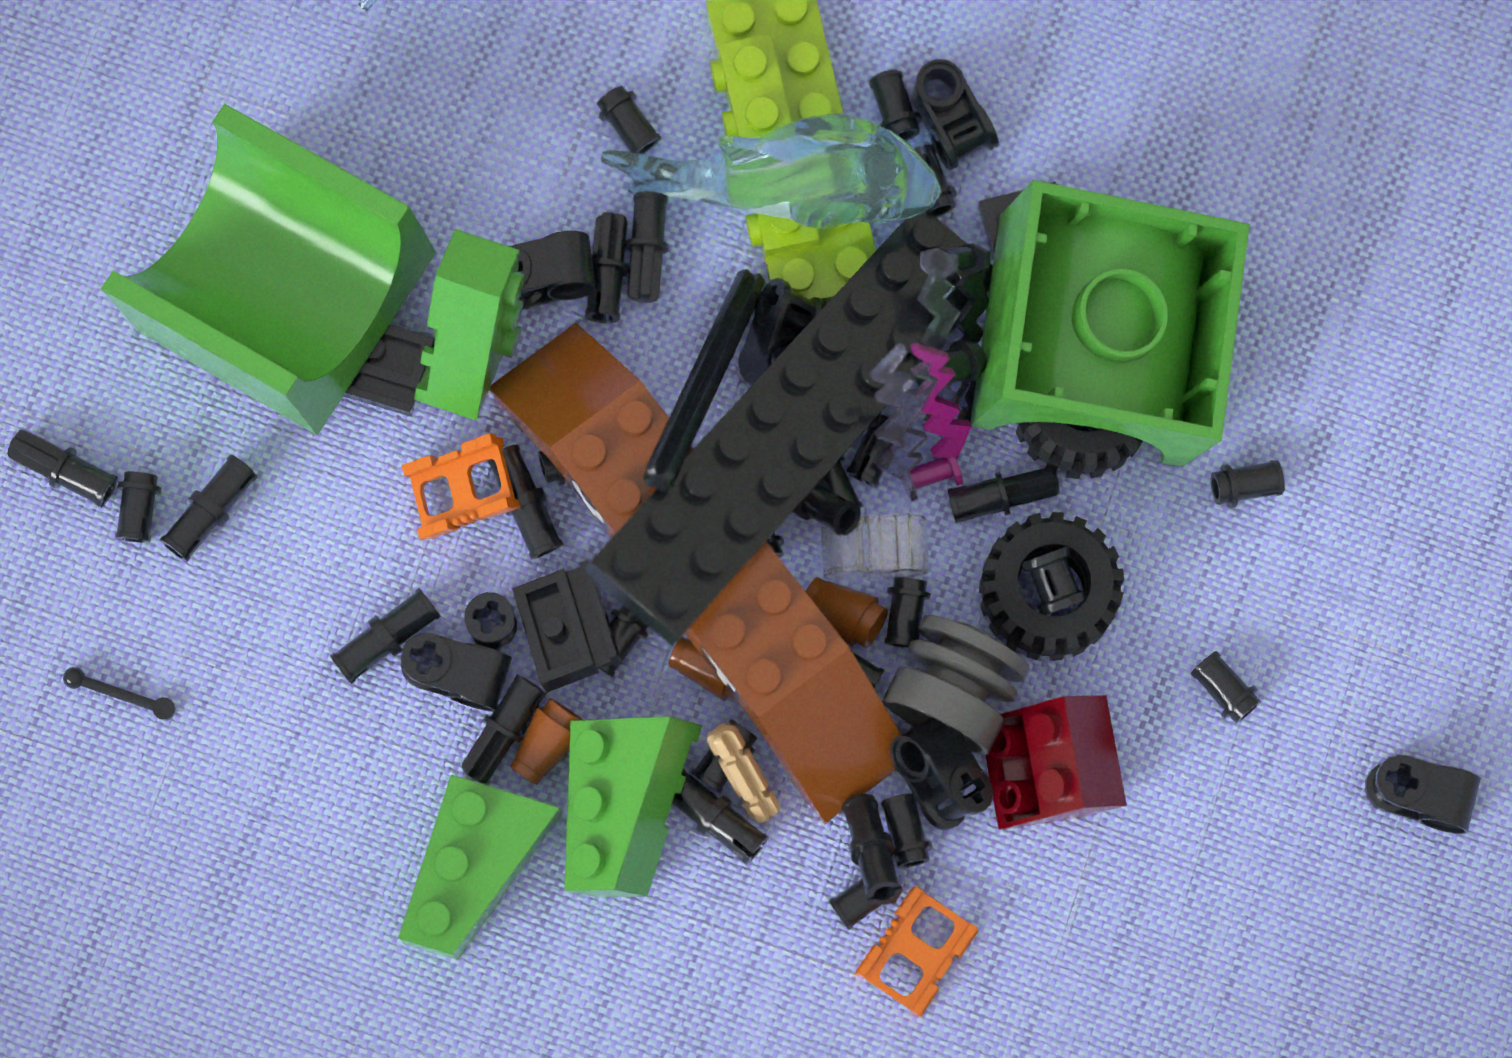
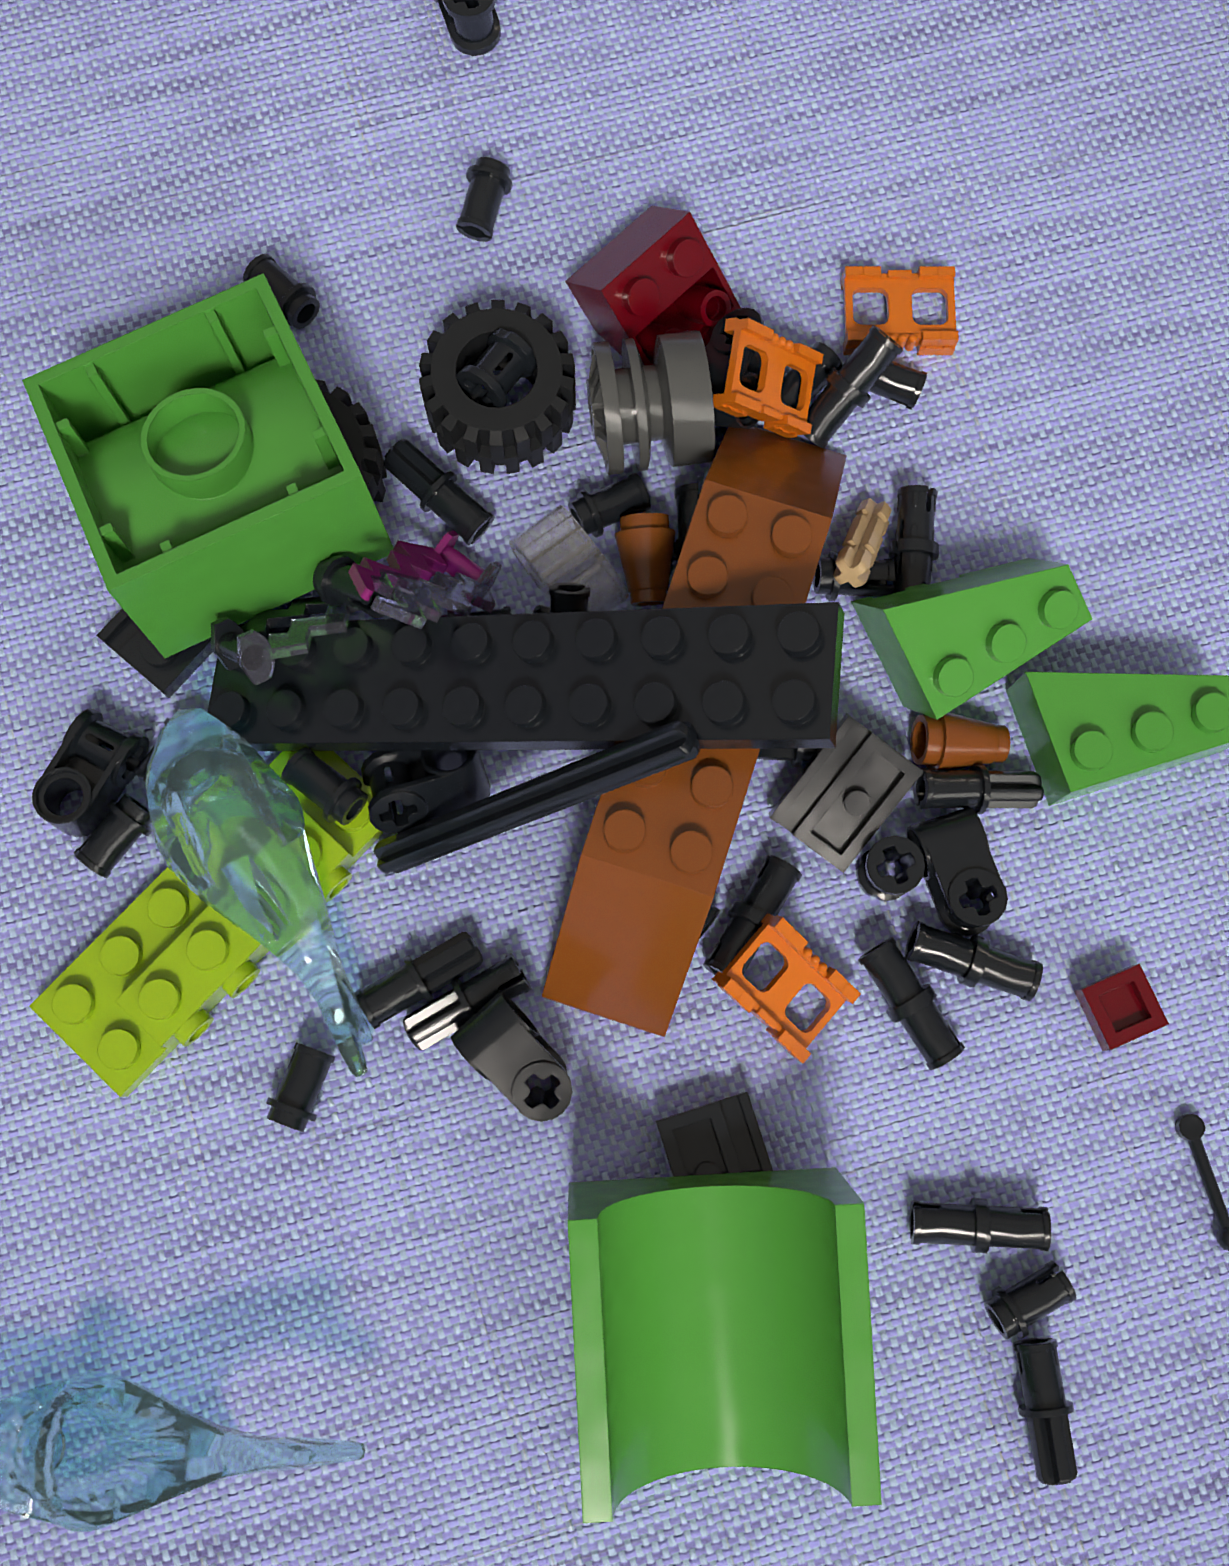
camera: 125 degrees left, 0 degrees up
(279, 715) = (1121, 1007): none -> dark red plate
(387, 570) = (911, 1004): none -> black pin
(474, 323) = (622, 1085): bright green wedge -> none
(822, 262) = (332, 792): none -> black pin
(926, 793) = (766, 401): none -> orange piece

